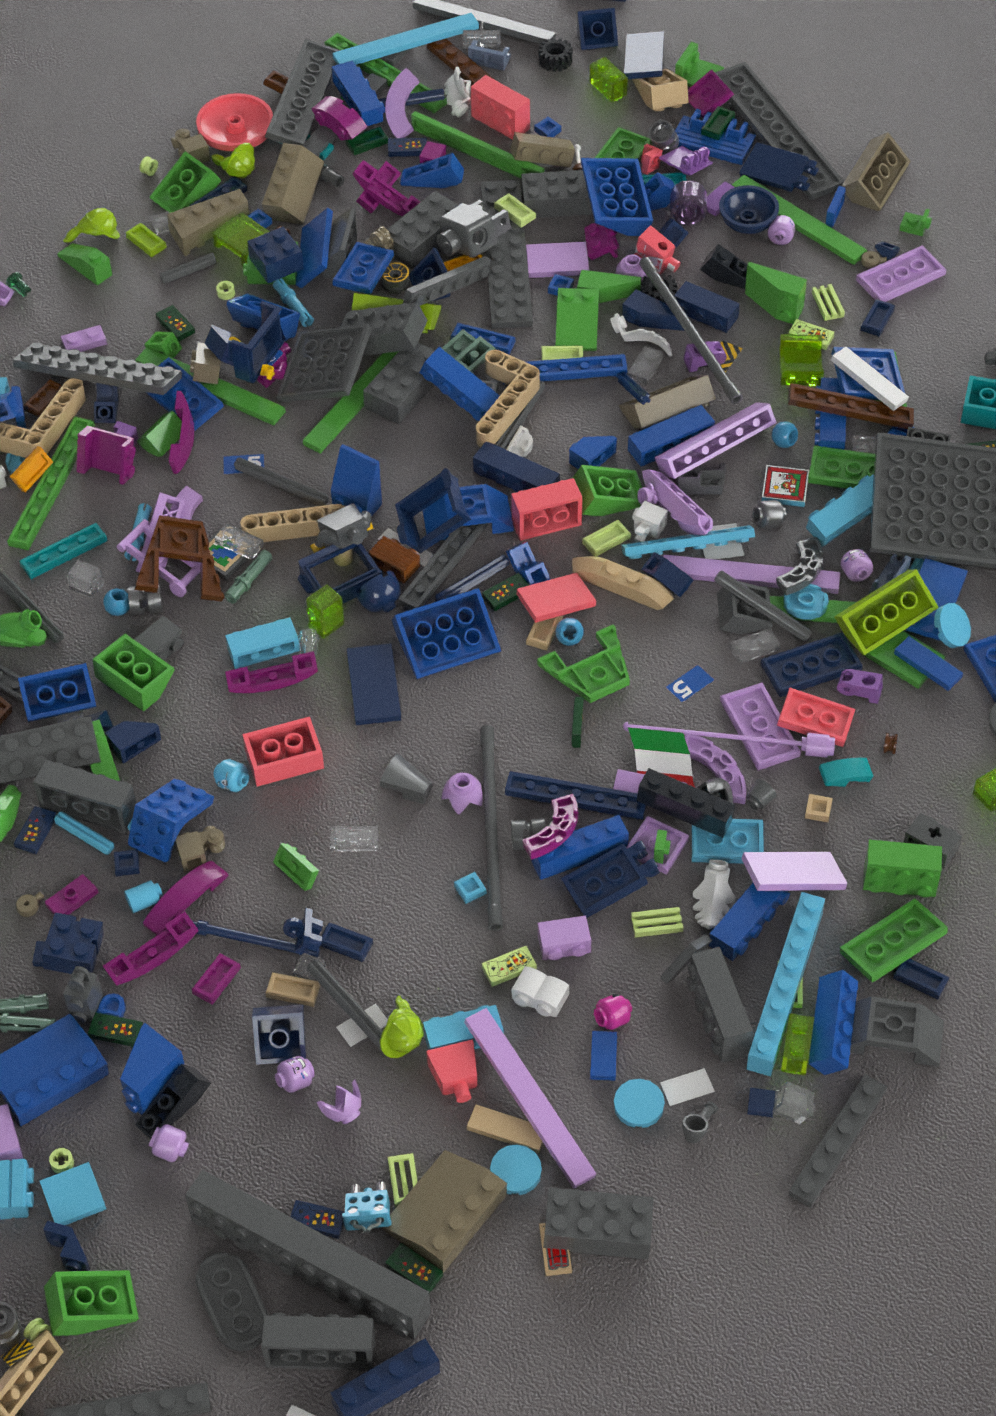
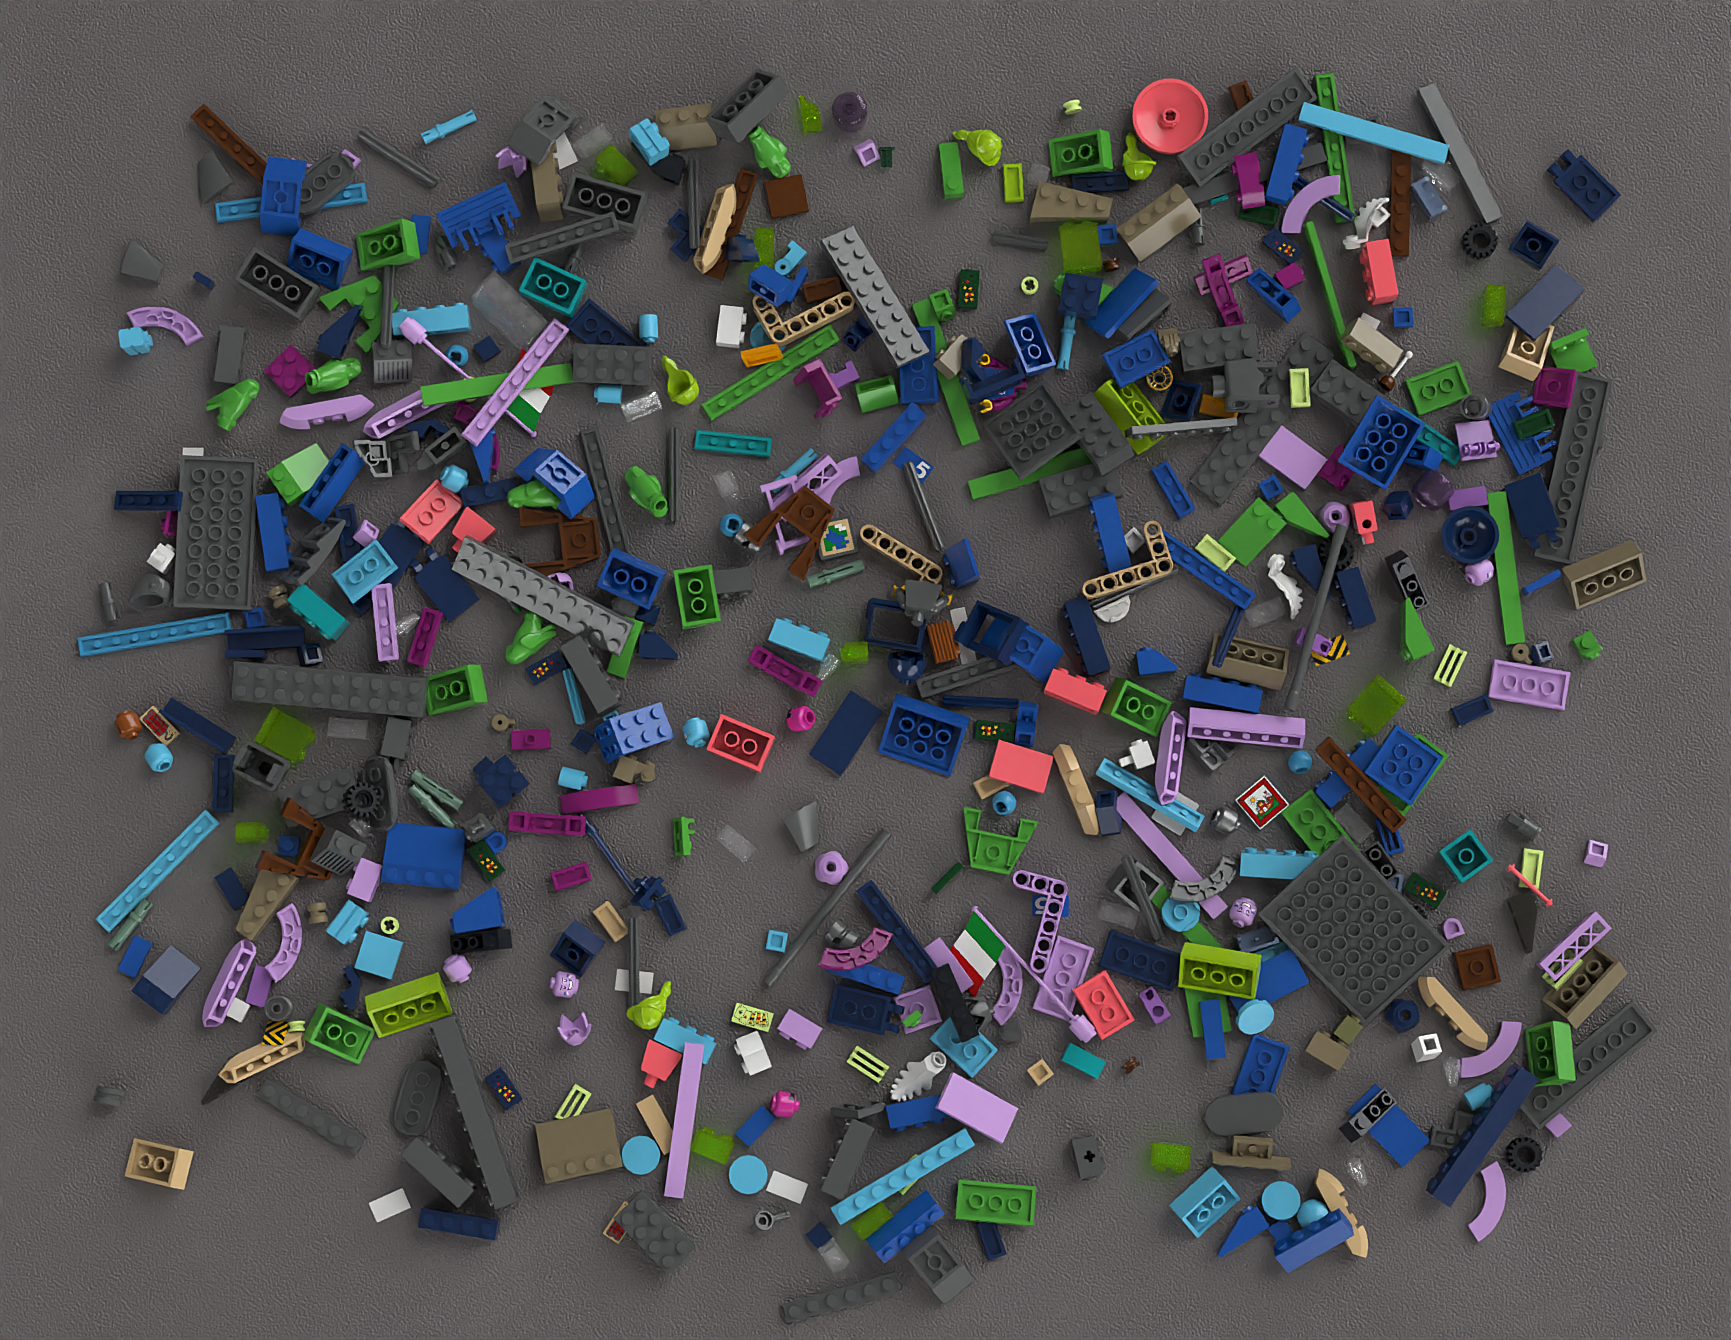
camera: 45 degrees right, 30 degrees up
(84, 339) = (892, 251): lavender plate -> none
(144, 1217) = (408, 1005): none -> lime slope
(180, 452) = (891, 411): magenta slope -> none
(195, 145) = (1117, 117): dark tan brick -> none
(207, 451) = (893, 438): none -> blue brick
(239, 541) = (851, 539): clear plate -> none
(320, 696) = (800, 718): none -> dark pink head
(367, 1208) = (530, 1113): medium azure piece -> none
(414, 1268) = (532, 1166): dark green tile -> none
(468, 350) = (1143, 499): sand green brick -> none
(580, 1101) = (712, 1145): none -> clear neon green brick
(606, 538) = (1101, 742): yellowish green tile -> none
(647, 494) = (1154, 736): lavender plate -> none
(650, 158) = (1451, 417): coral bracket -> none
(687, 666) = (1047, 916): none -> lavender beam
(804, 328) = (1408, 685): yellowish green tile -> none
(869, 378) = (1394, 774): white tile -> none
(902, 868) = (1044, 1164): bright green brick -> none

